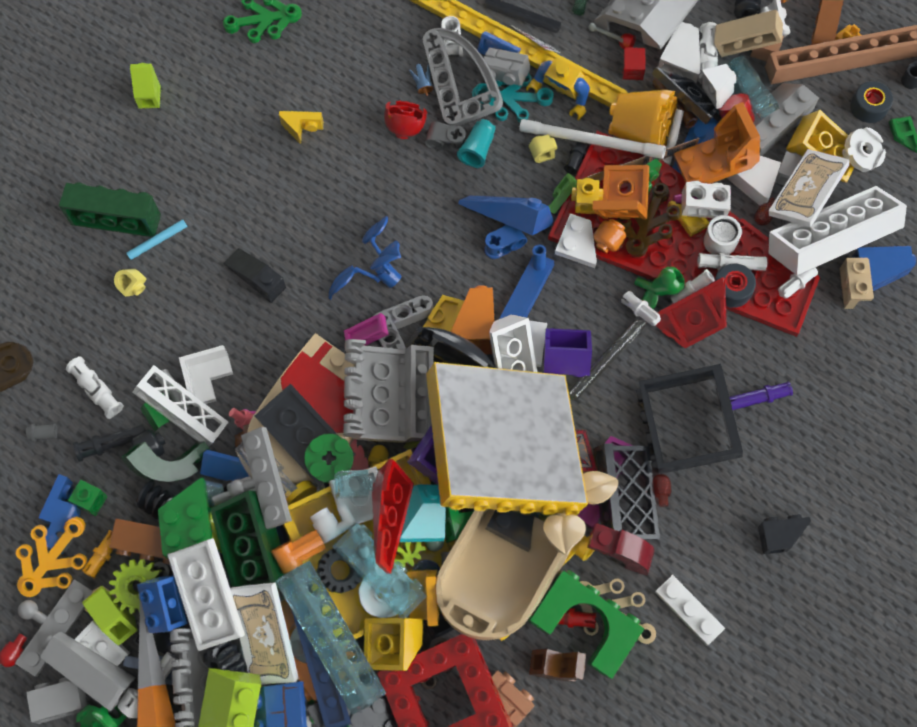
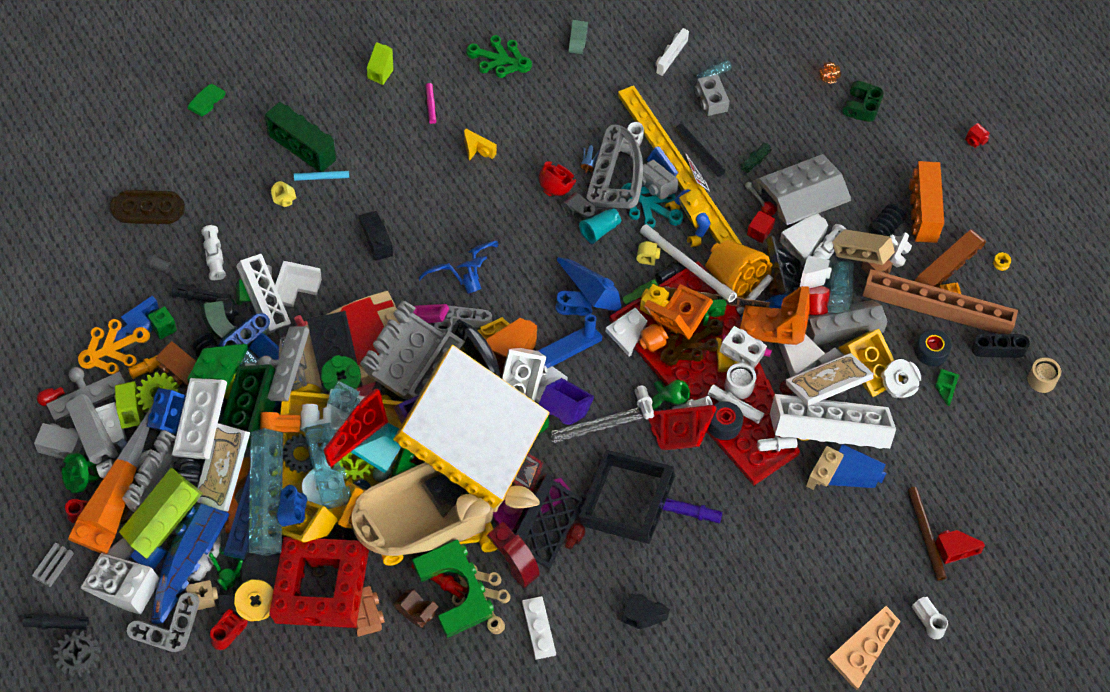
camera: 25 degrees right, 10 degrees down
(197, 455) = (251, 327): none -> blue beam
(222, 102) = (430, 103): none -> dark pink piece
(370, 638) = (291, 506): none -> blue piece

